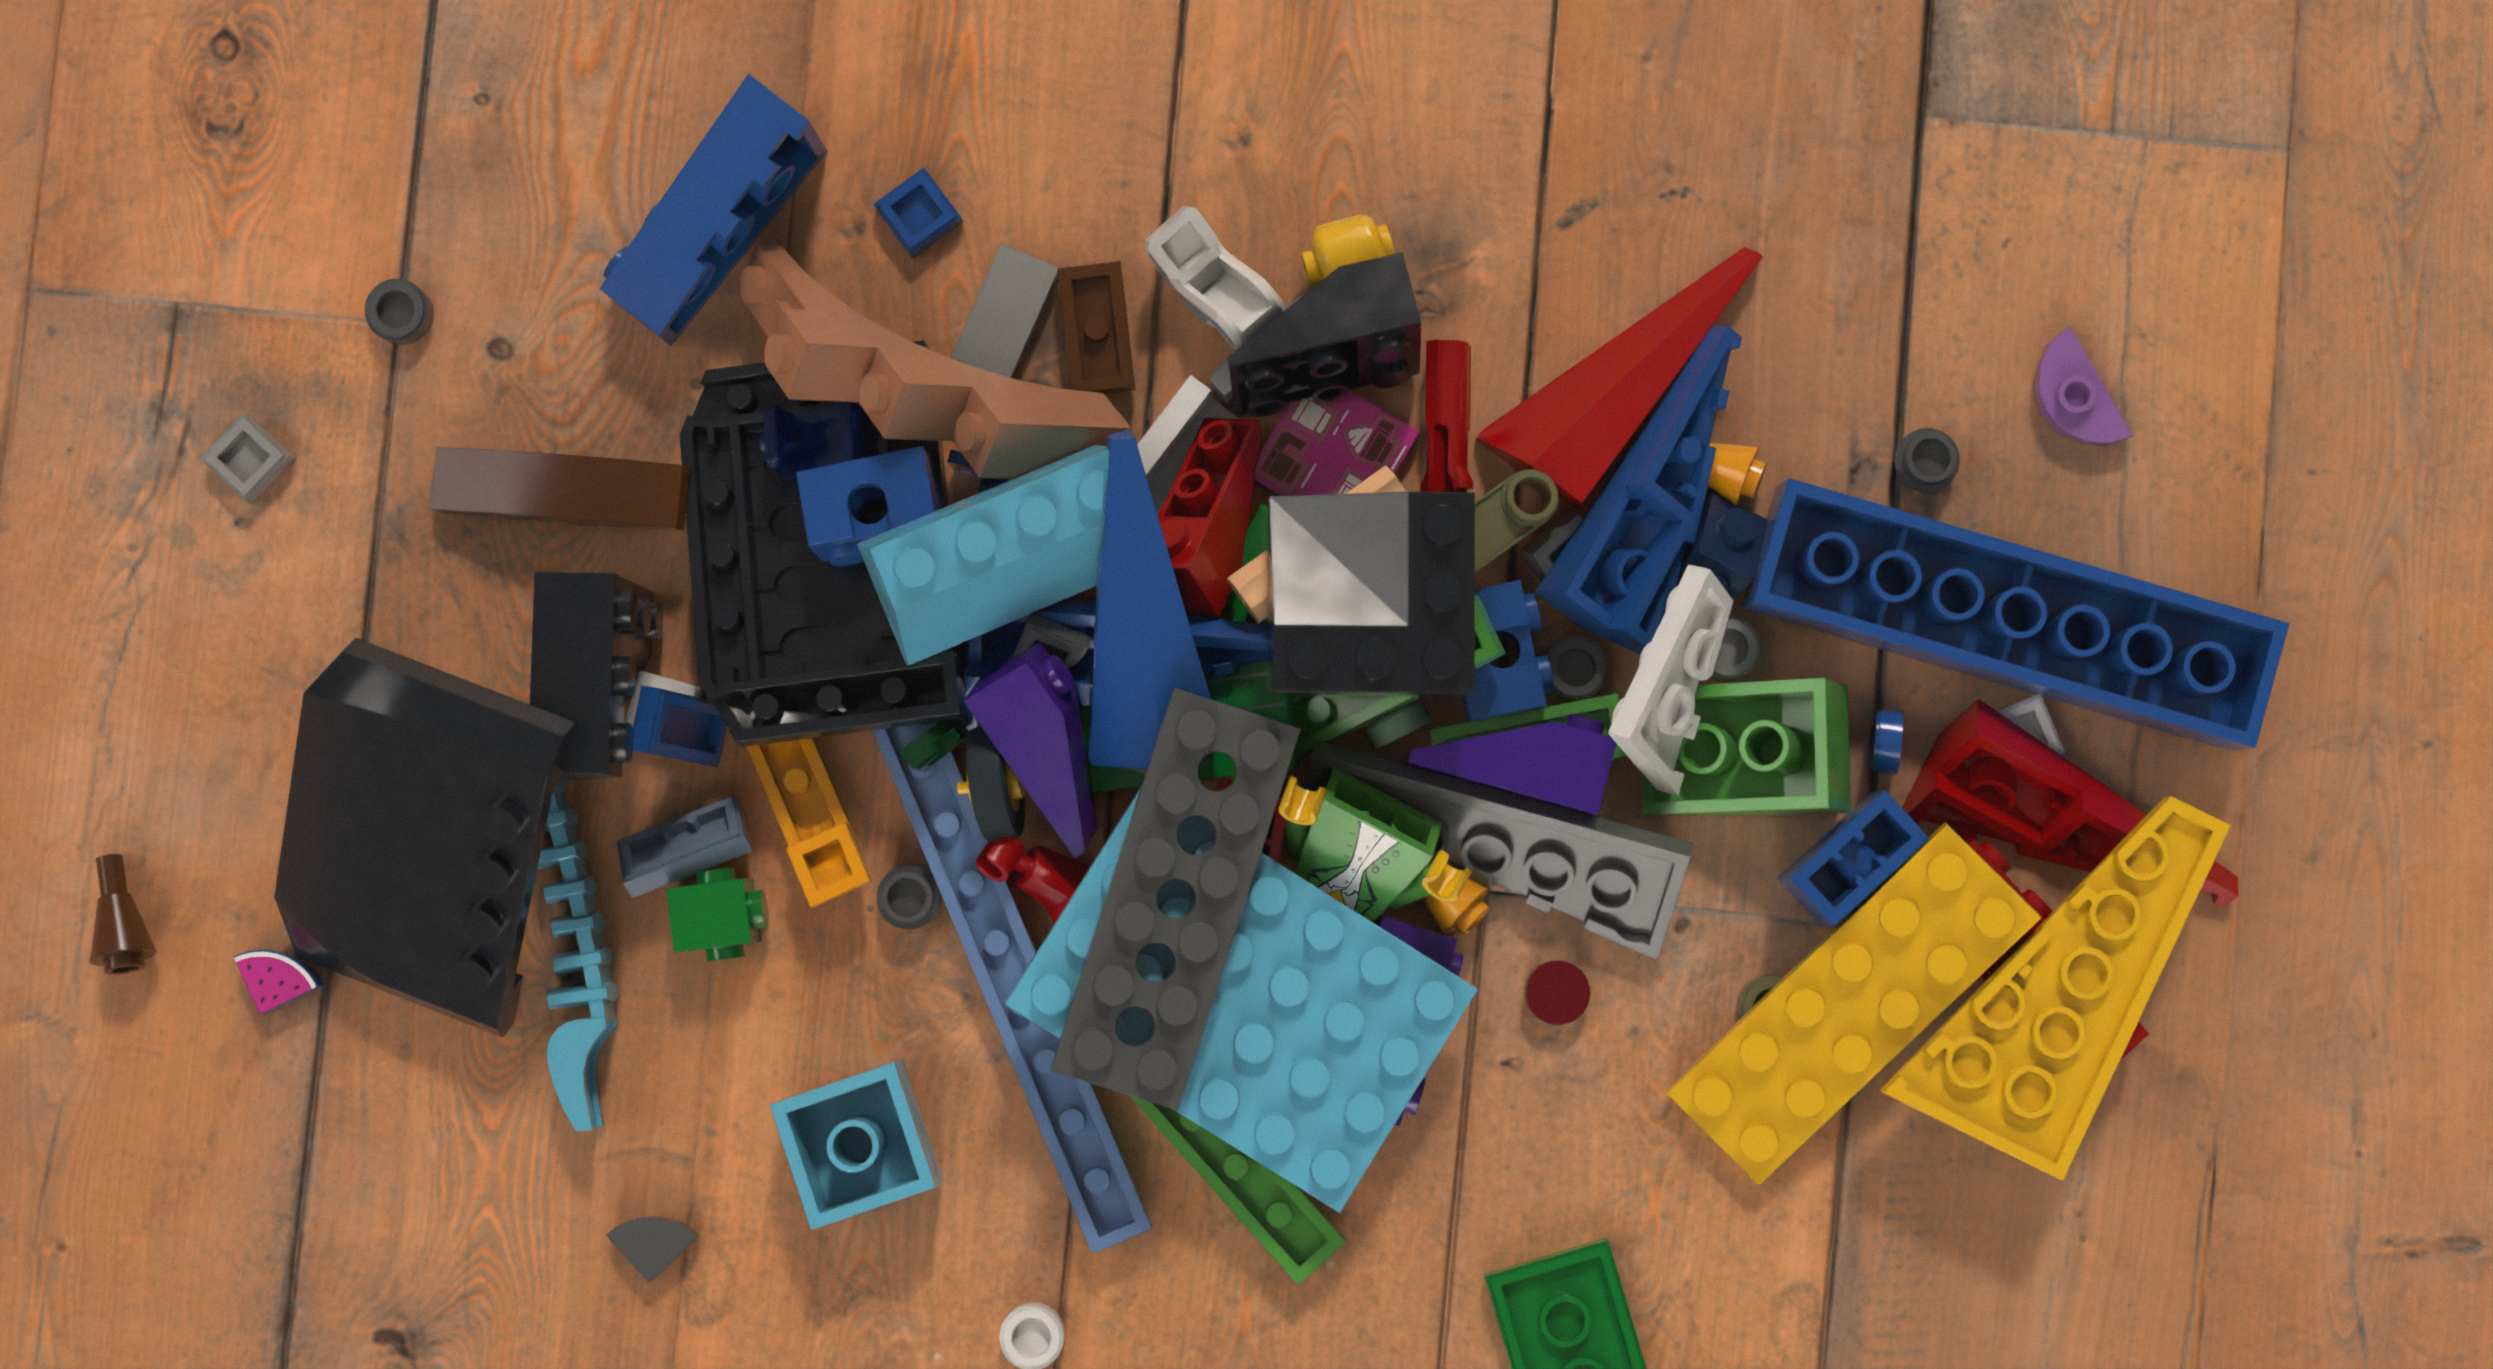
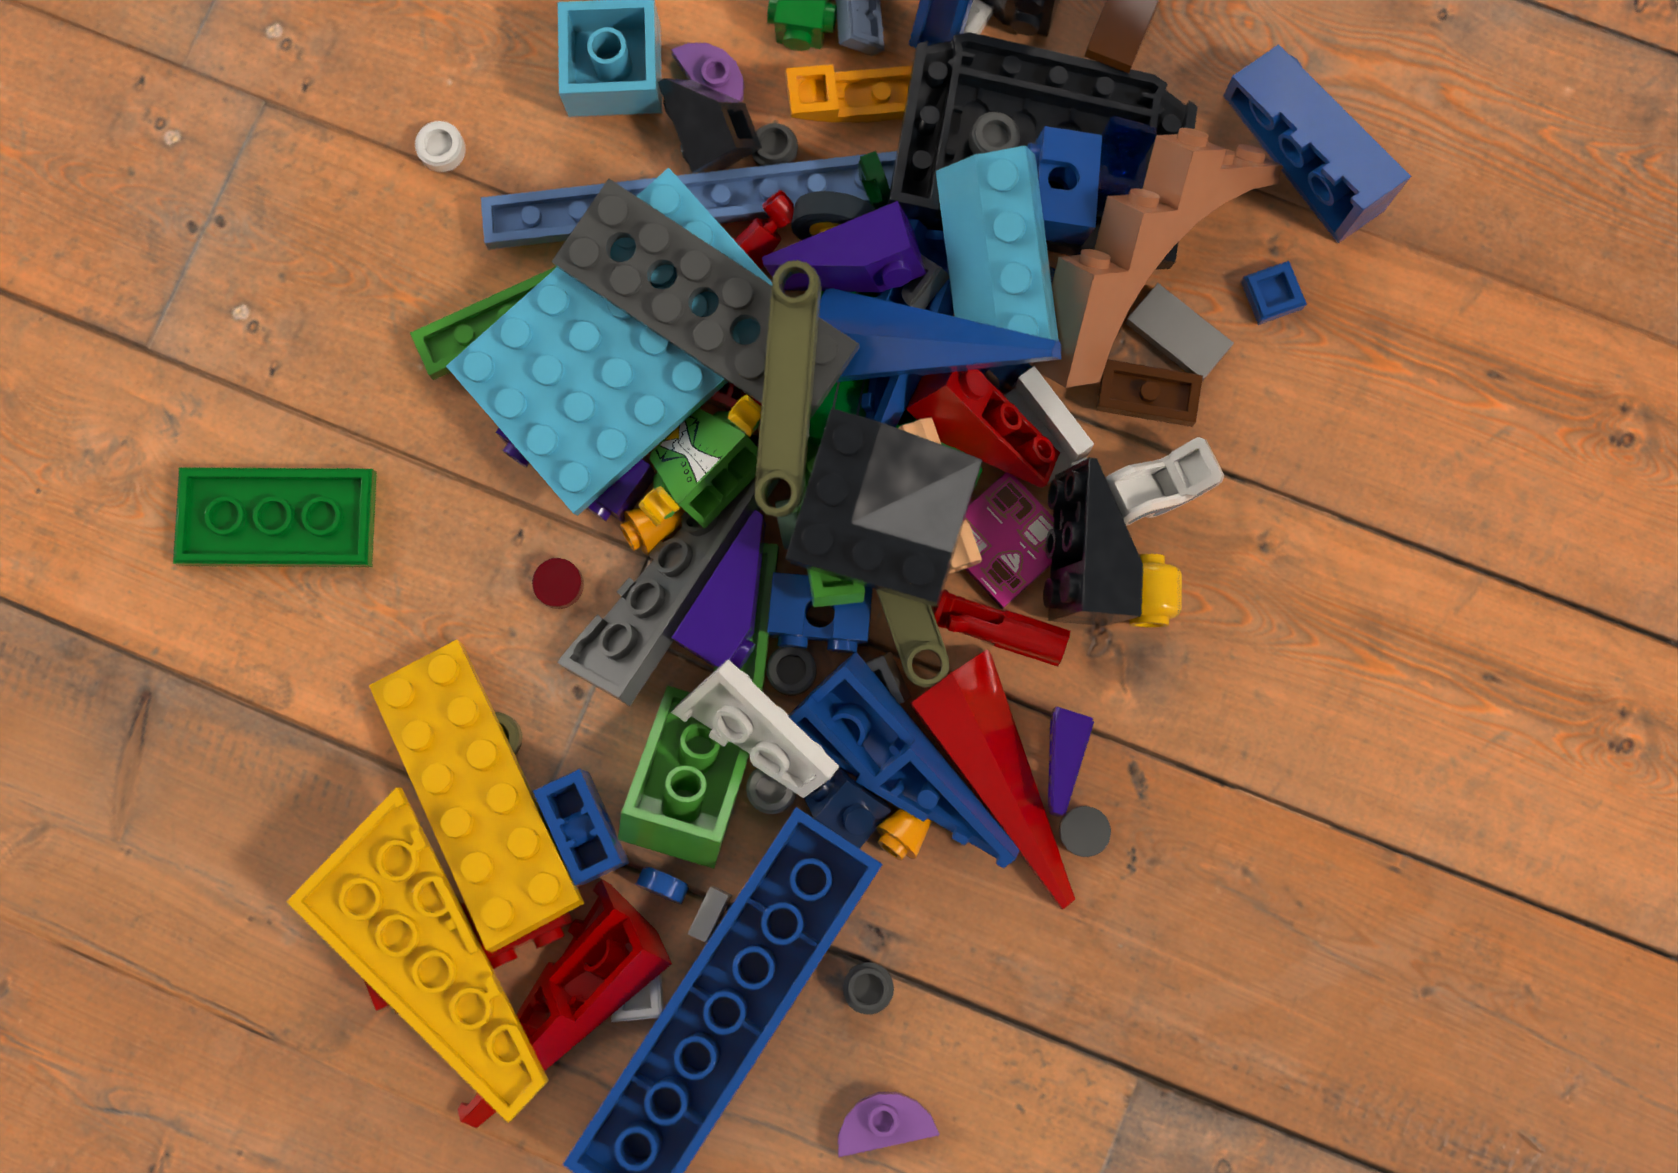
camera: 110 degrees right, 5 degrees down
(831, 610) = (993, 133): none -> dark grey tile
(836, 1005) = (711, 68): none -> medium lavender plate
(909, 986) = (709, 124): none -> black slope
(1264, 753) = (787, 388): none -> olive piece
(1571, 304) = (1066, 751): none -> dark purple slope
(1660, 258) = (1085, 831): none -> dark grey tile
(1903, 673) = (709, 914): none -> light grey tile

